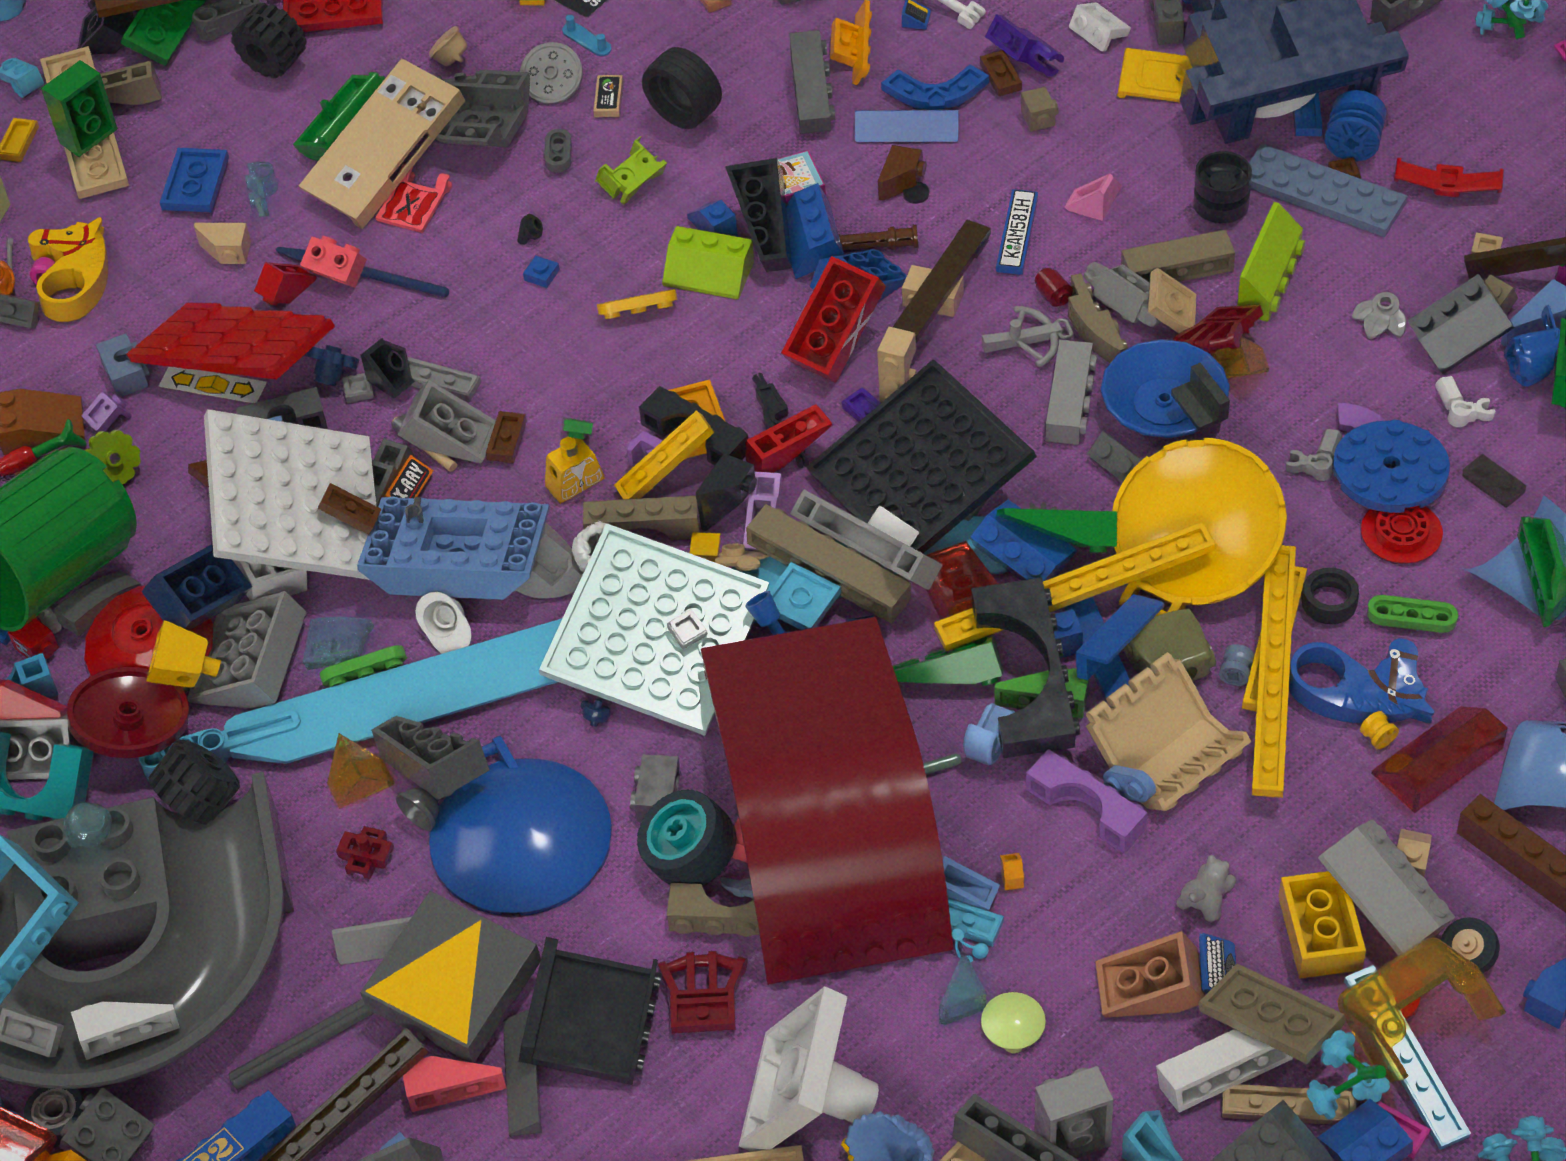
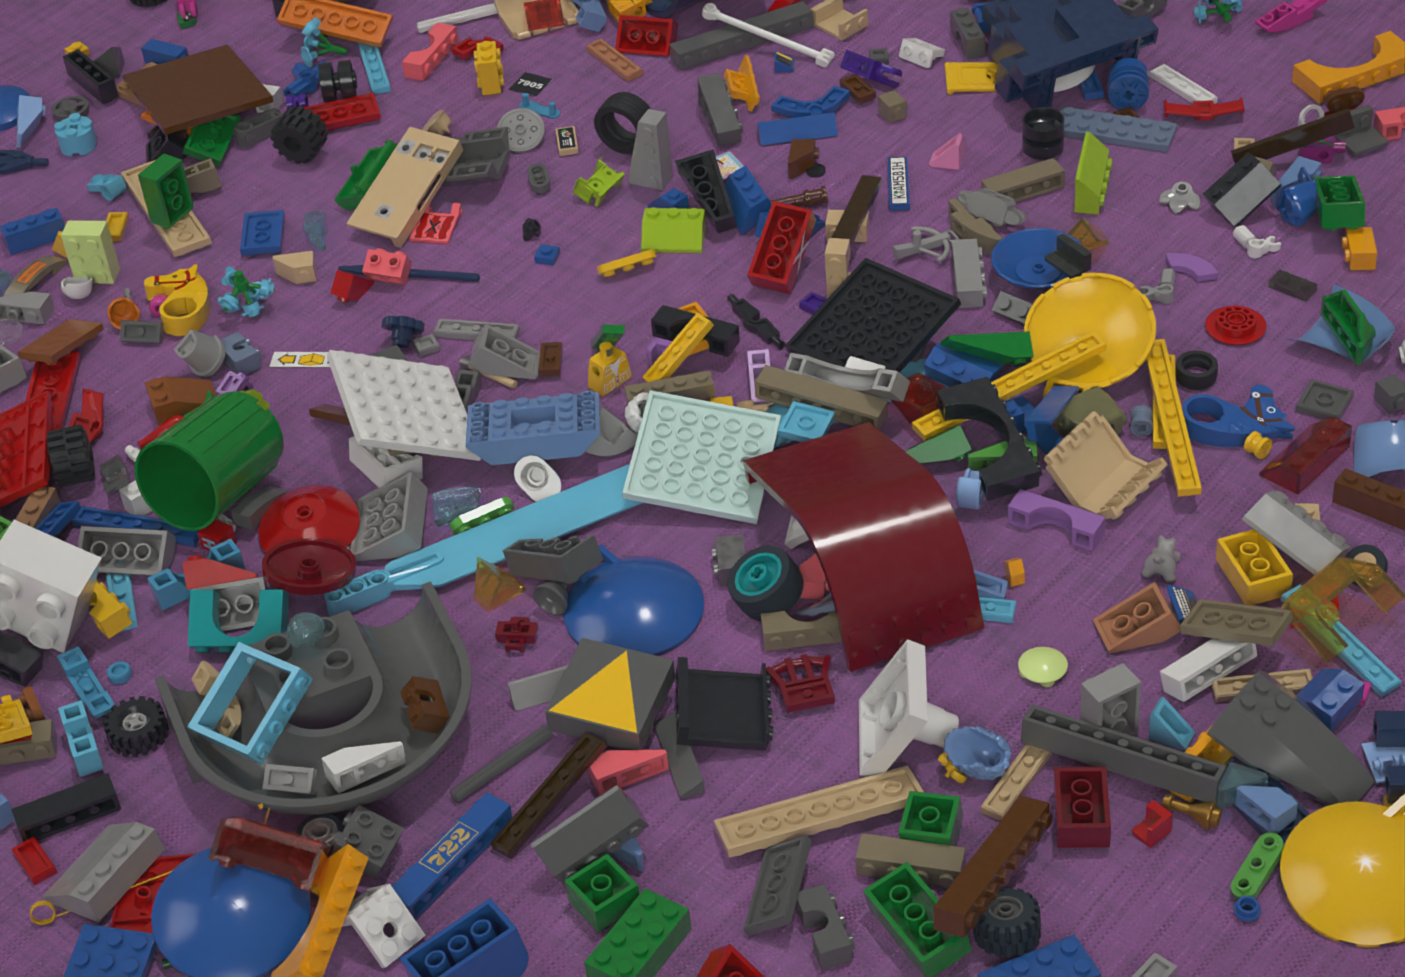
camera: 10 degrees left, 10 degrees down
(73, 357) = (201, 352): none -> light grey container
(131, 279) = (251, 291): none -> medium azure plant
(180, 657) = (341, 524): yellow torso -> none
(194, 781) = (374, 601): black wheel -> none
(196, 589) = (343, 477): dark blue brick -> none
(217, 952) = (422, 712): none -> reddish brown brick
(231, 340) = (323, 322): red piece -> none
(349, 508) = (449, 408): reddish brown plate -> none
(387, 367) = (447, 326): black slope -> none
(409, 479) = (484, 392): tile -> none
(414, 510) = (499, 404): dark grey hand -> none
(595, 712) = (669, 520): dark blue piece -> none
(687, 629) = (727, 452): tile -> none
(702, 143) = (651, 153): none -> light grey wedge
(724, 489) = (730, 363): black slope -> none
(765, 612) = (783, 432): blue piece -> none
(786, 440) = (766, 328): red slope -> none
(963, 995) = (1002, 652): clear light blue slope -> none
(979, 950) = (1004, 626): medium azure piece -> none
(1042, 24) = (879, 55): none -> dark grey tile
(1053, 287) = (936, 211): dark red brick -> none
(1130, 783) = (1085, 498): medium blue plate -> none
(1171, 301) = (1027, 207): tan tile -> none
(1221, 328) = (1070, 216): dark red plate -> none
(1367, 1081) = (1315, 657): medium azure plant -> none
(1416, 480) = (1199, 289): blue plate -> none
(1426, 613) = (1259, 372): bright green plate -> none
(1431, 133) = (1181, 85): none -> white tile
(1488, 672) = (1324, 400): none -> dark grey tile

